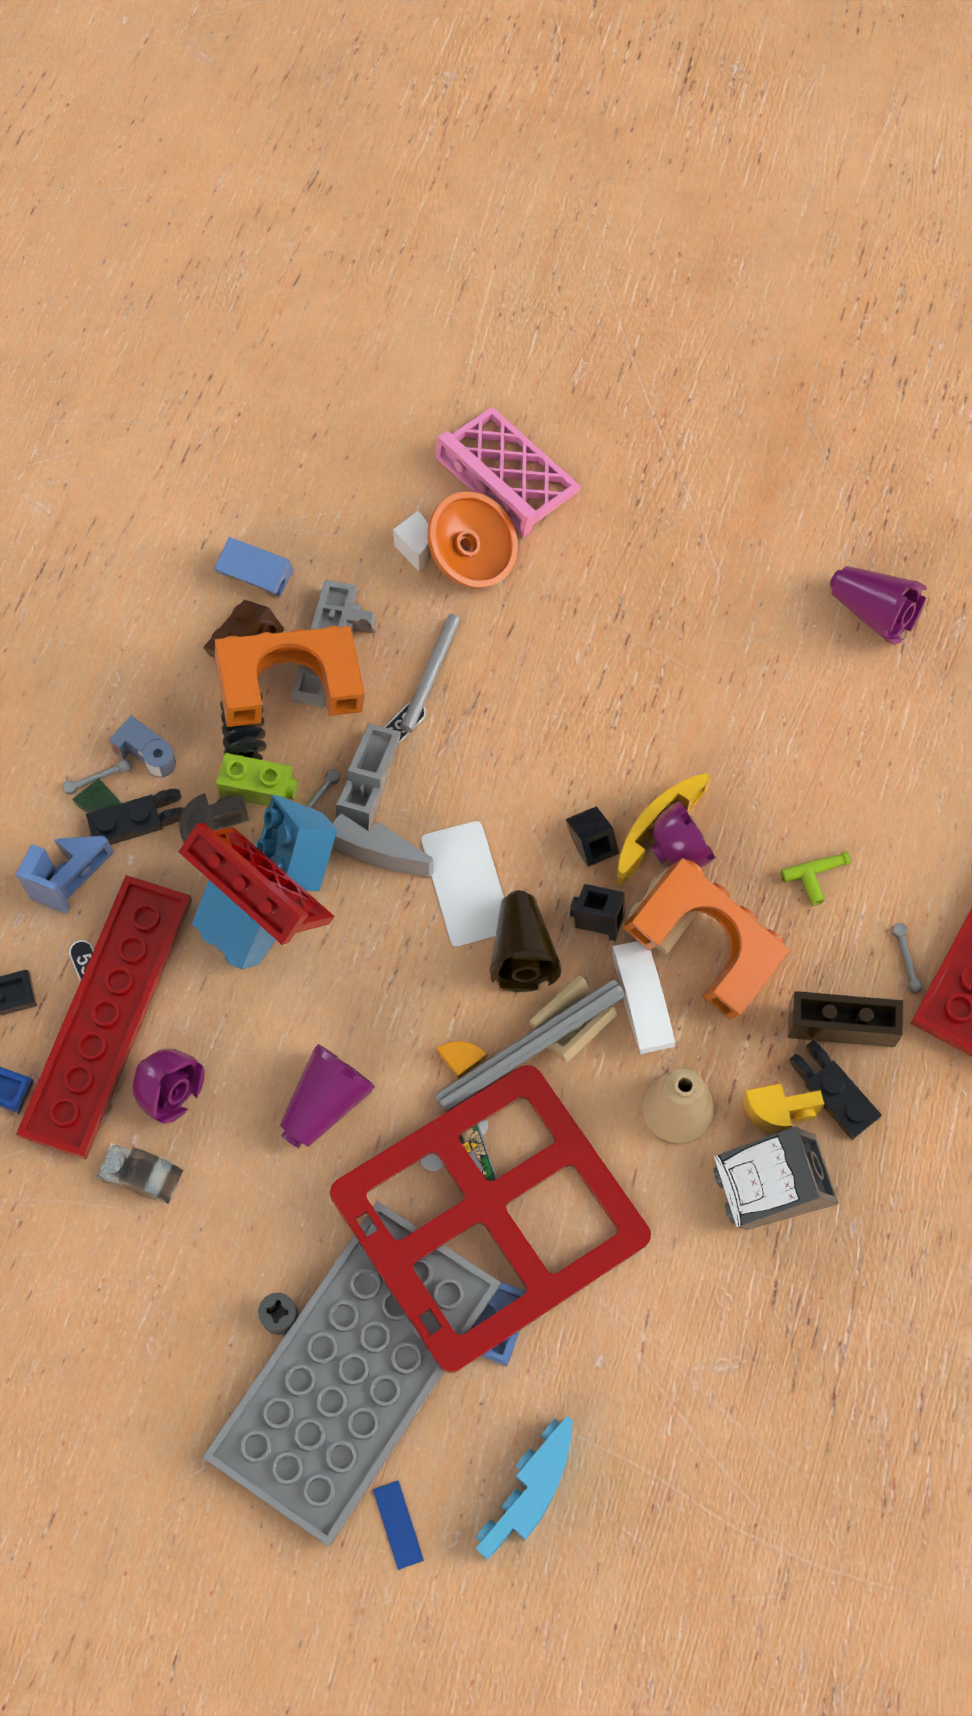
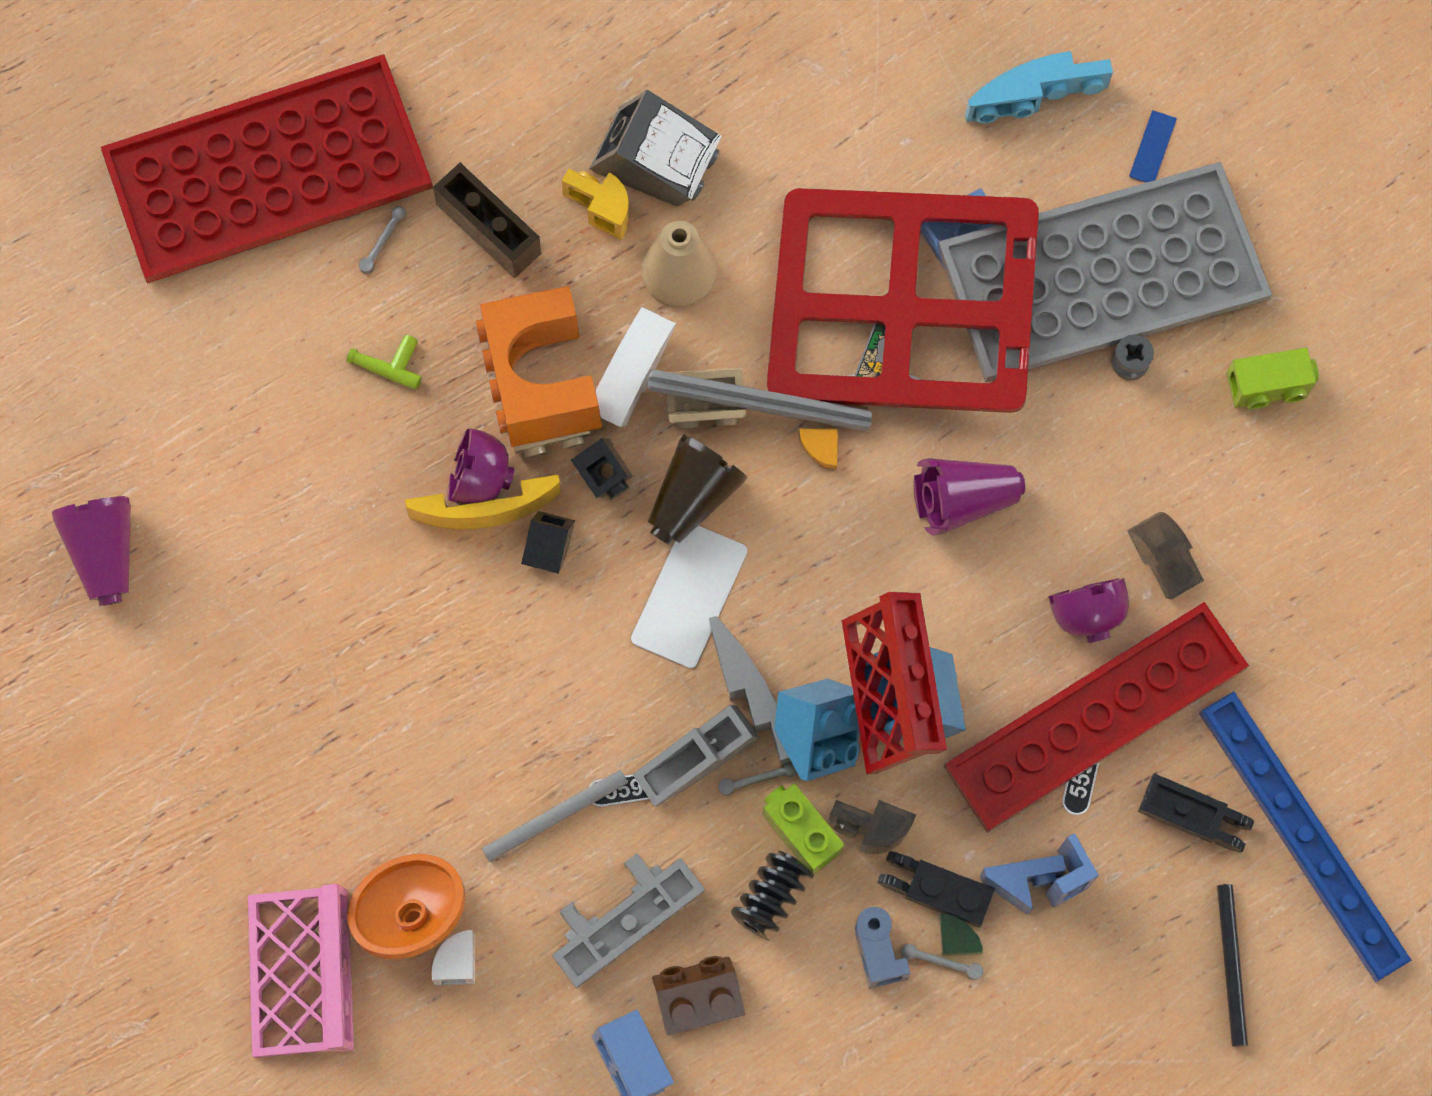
camera: 145 degrees left, 5 degrees up
(153, 1385) = (1272, 377): none -> lime brick
(325, 651) = (733, 933): orange arch -> none
(840, 1094) = (543, 180): black hinge -> none

